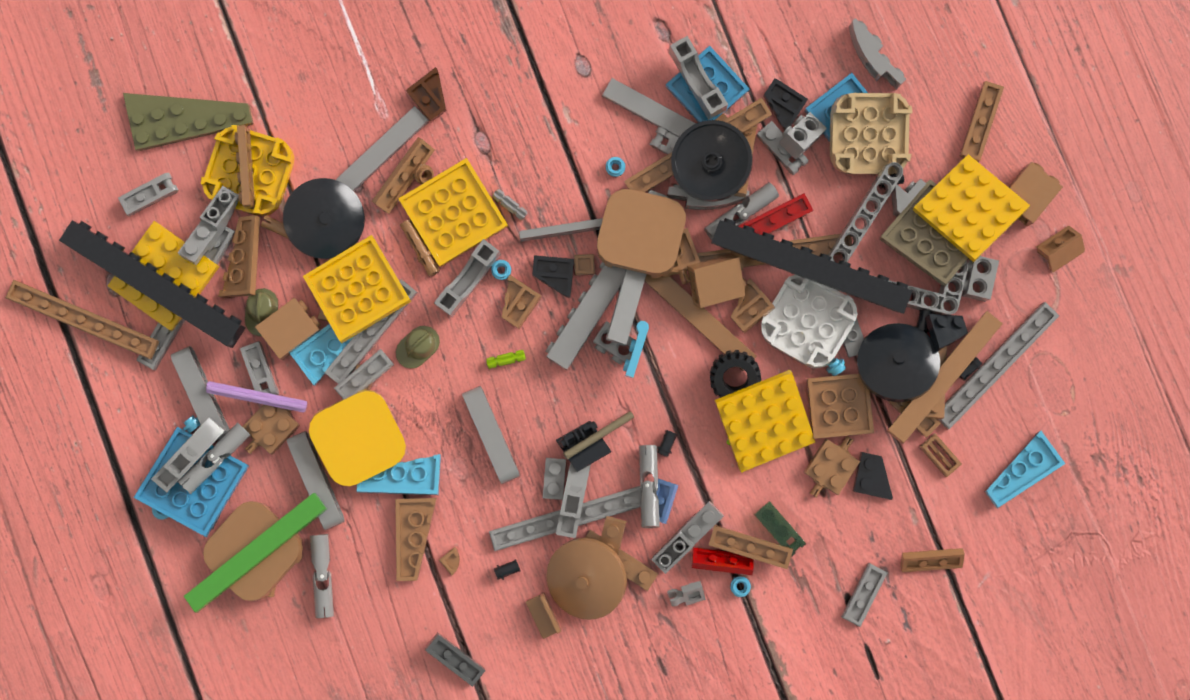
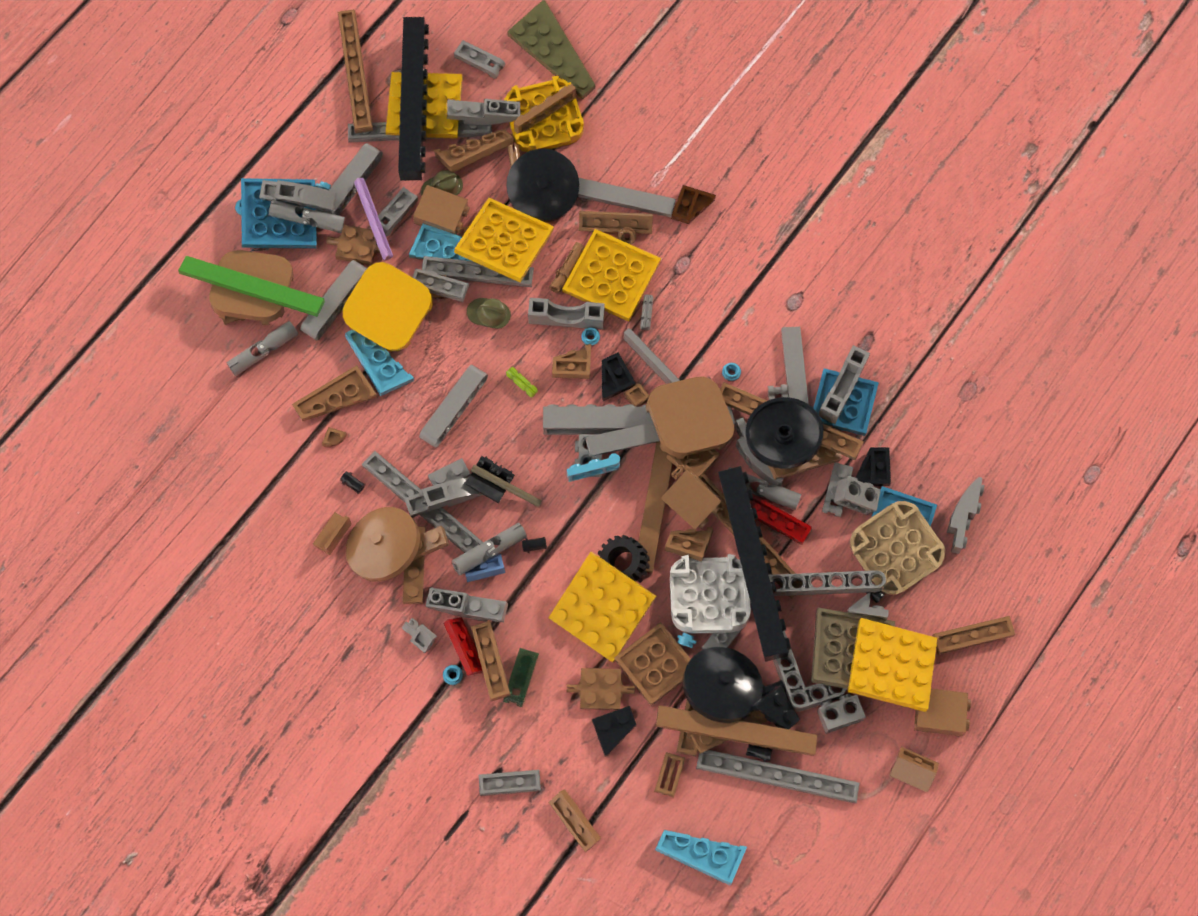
camera: 60 degrees right, 15 degrees down
(455, 659) = (255, 485): dark grey hinge -> none

